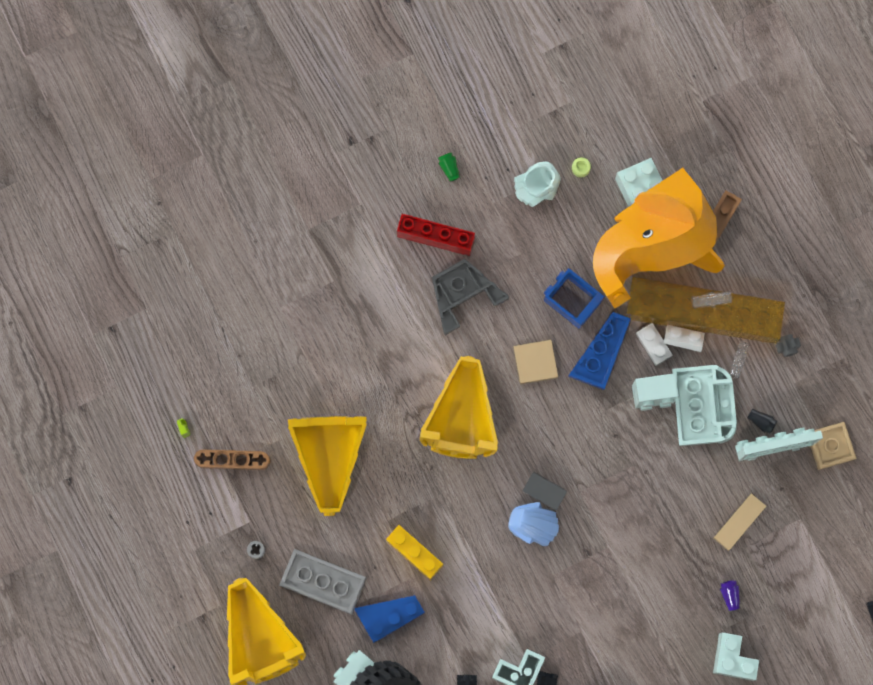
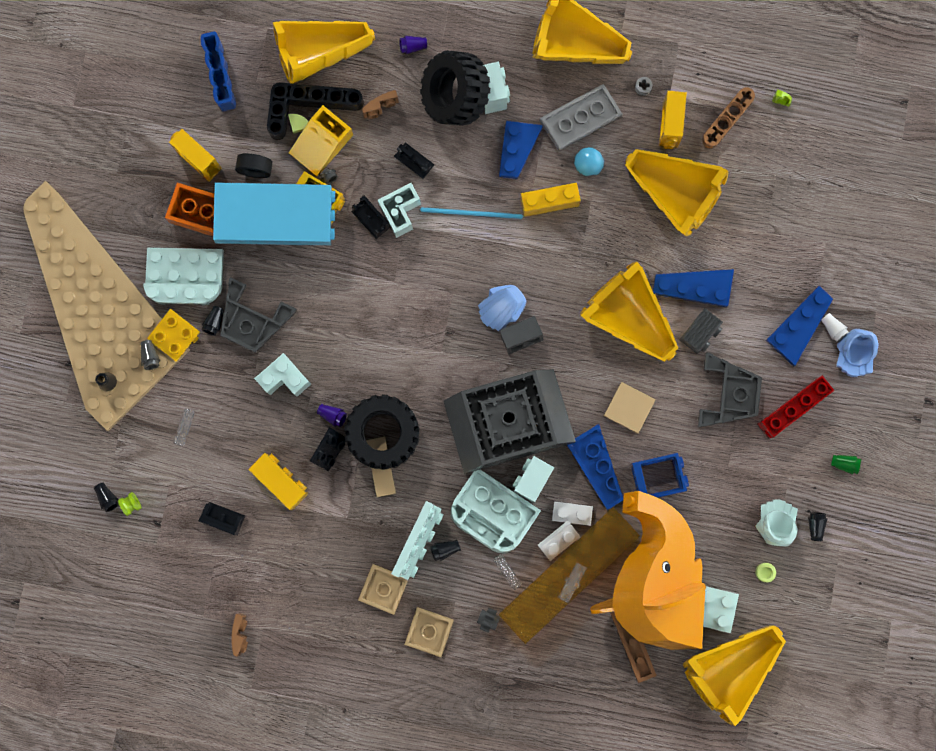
camera: 130 degrees right, 5 degrees up
(271, 500) = (672, 119): none -> yellow window
(347, 250) = (834, 327): none -> white cone
(355, 219) = (857, 352): none -> light blue hair
(356, 546) = (589, 161): none -> medium azure hair
(367, 278) = (796, 331): none -> blue wing
(395, 381) = (700, 287): none -> blue wing
(430, 350) = (701, 331): none -> dark grey brick
(474, 612) = (472, 213): none -> medium azure axle
(515, 154) = (817, 525): none -> black cone
(640, 471) = (485, 437): none -> dark grey slope
(675, 134) = (734, 671): none -> yellow cone
(726, 517) = (376, 406): none -> black tyre
(768, 571) = (328, 449): none -> black hinge
(818, 595) = (279, 480): none -> yellow brick
(833, 385) = (429, 632): none -> tan tile

